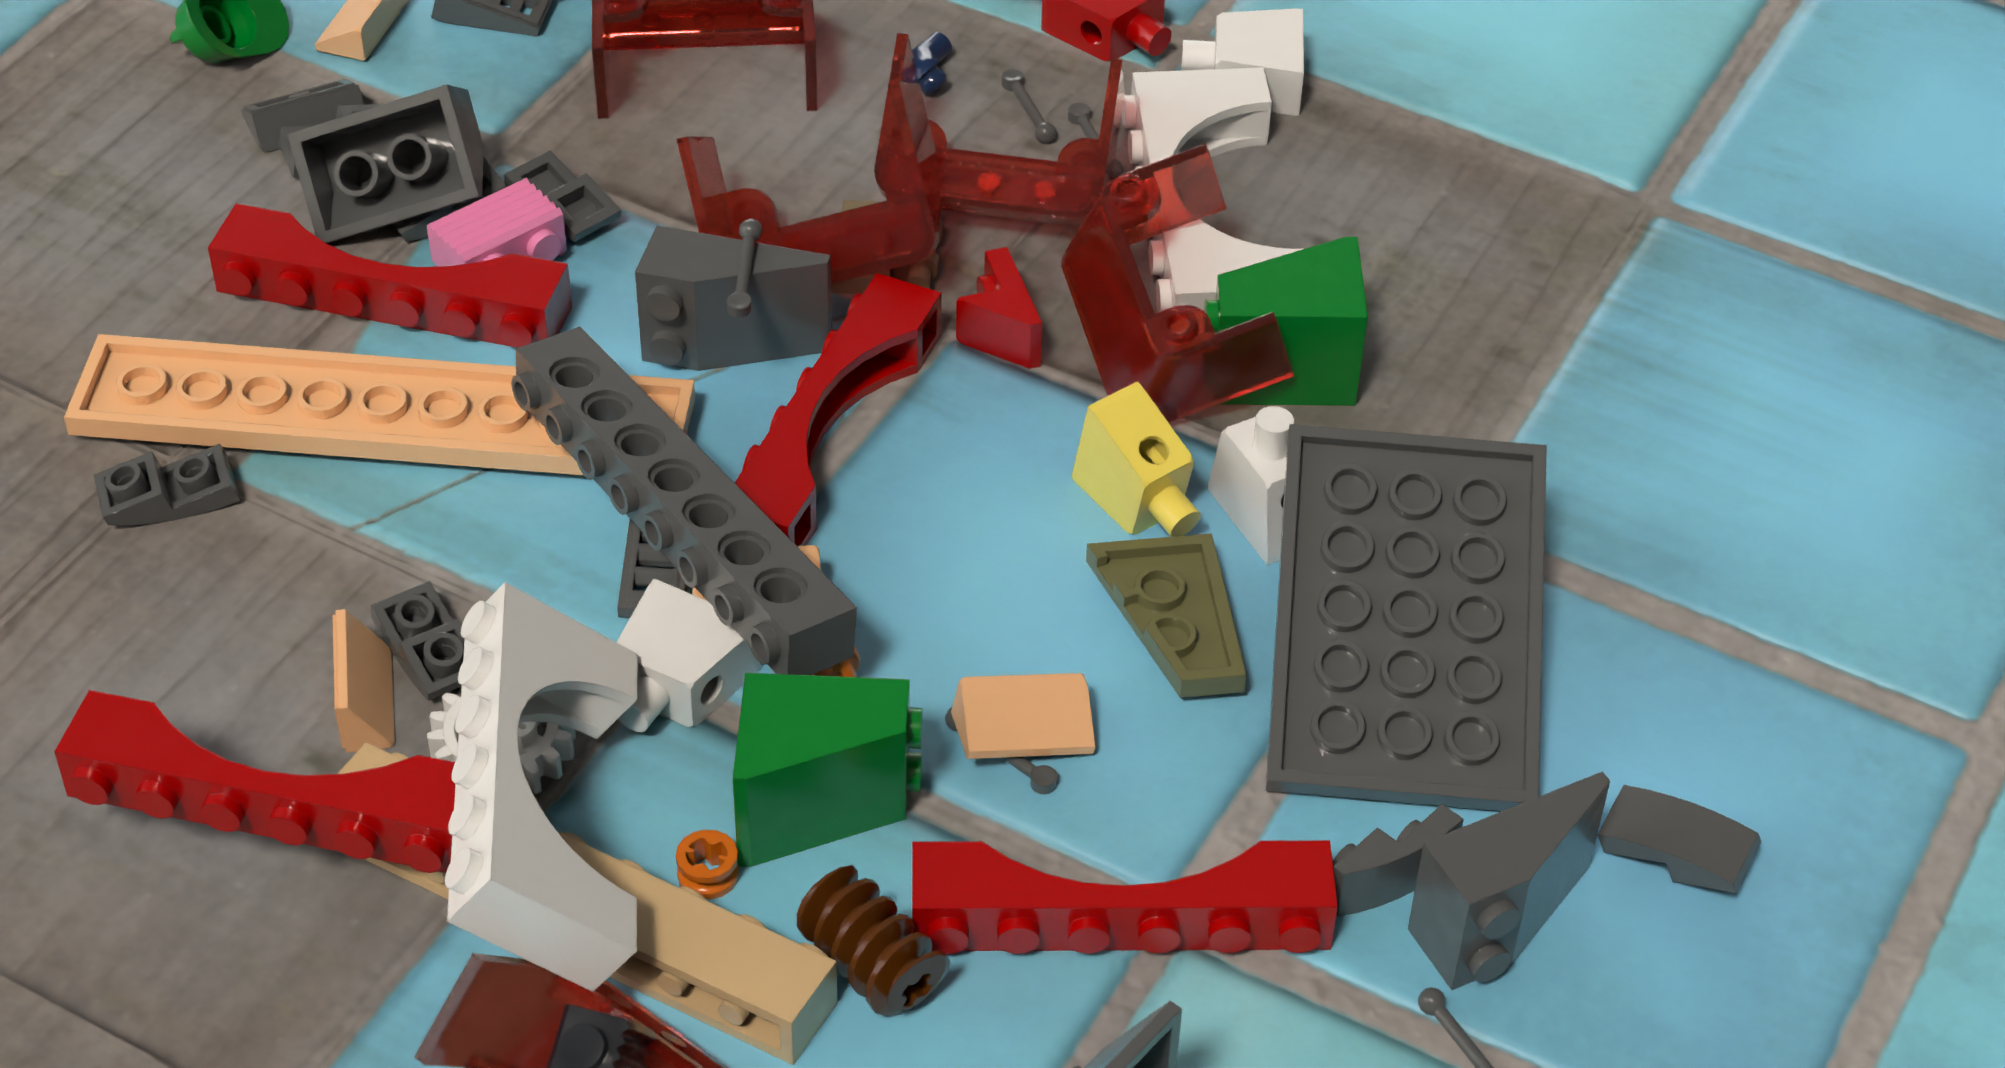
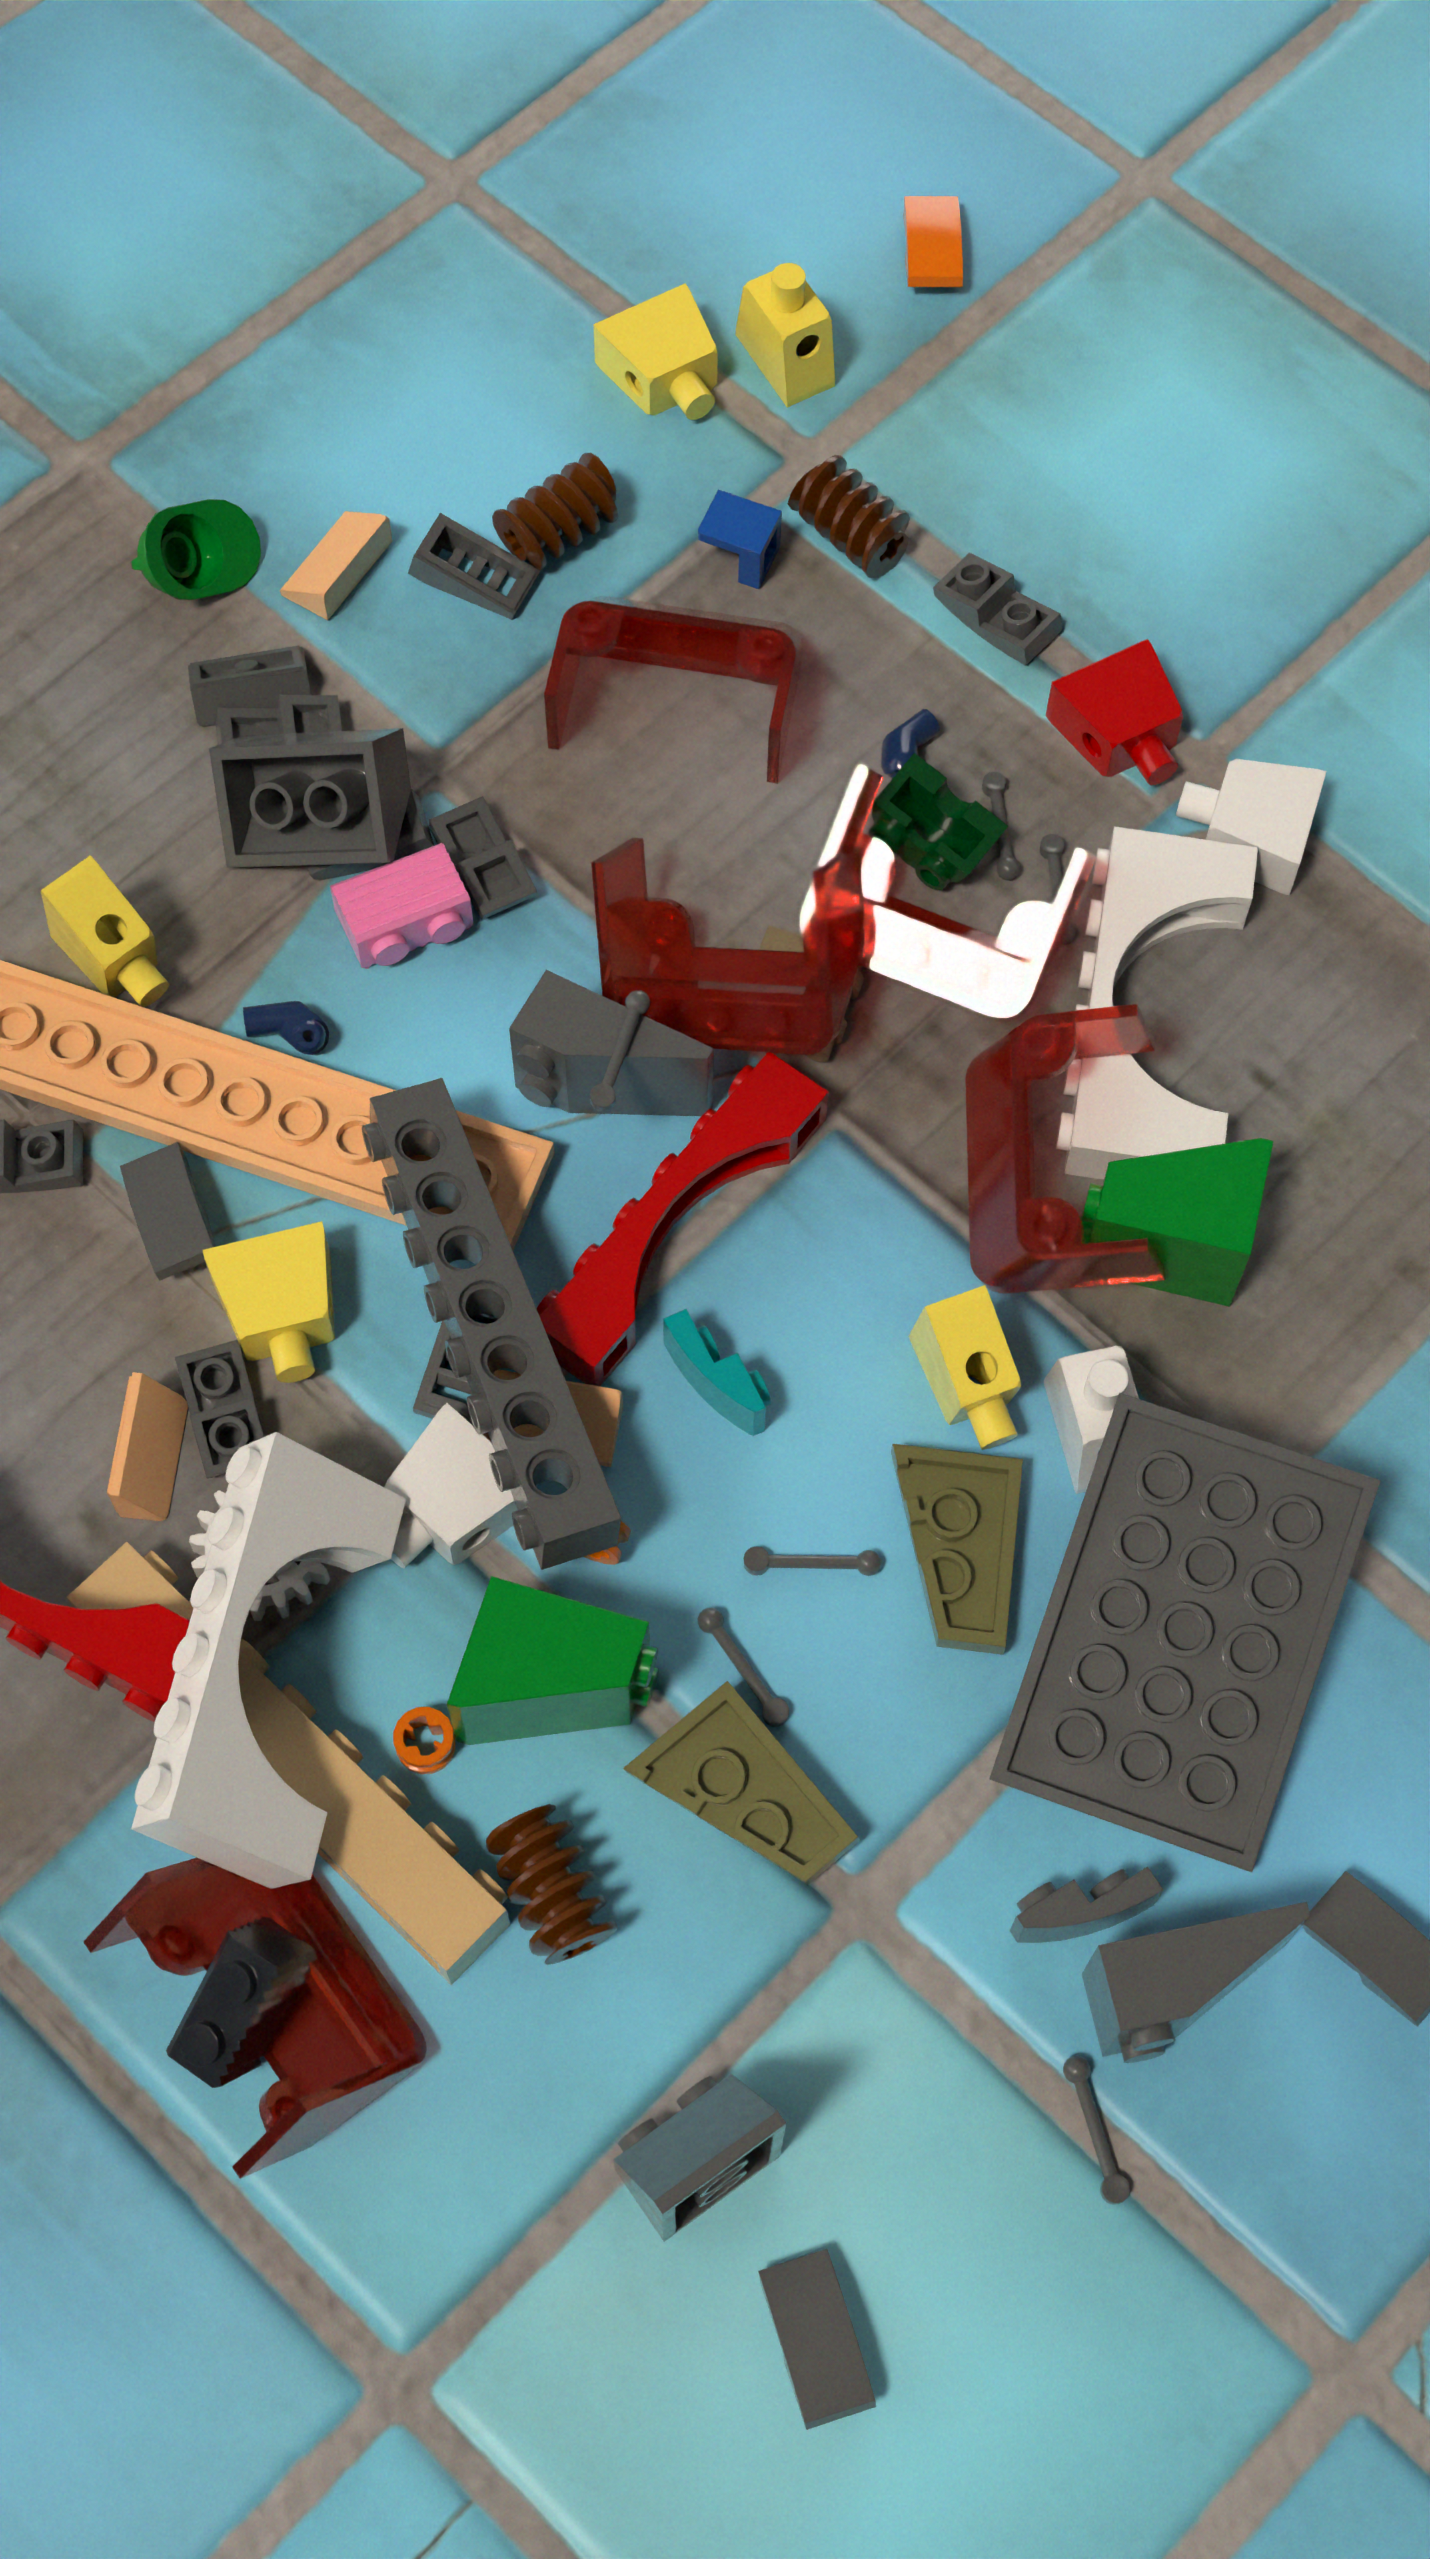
camera: 15 degrees right, 20 degrees up
(213, 290) = (103, 933): none -> light yellow torso
(335, 497) = (167, 1210): none -> dark grey slope
(411, 341) = (289, 1020): none -> dark blue arm
(456, 537) = (277, 1296): none -> light yellow torso
(492, 301) = (385, 990): red arch -> none
(906, 531) = (721, 1383): none -> teal slope
(969, 109) = (932, 825): none -> dark green cylinder
(1001, 314) = (890, 1125): red slope -> none
(1024, 715) = (771, 1646): light nougat slope -> none
(1042, 825) = (746, 1785): none -> olive wing
(1092, 648) = (758, 1561): none -> dark grey hinge
(1261, 900) = (948, 1920): red arch -> none

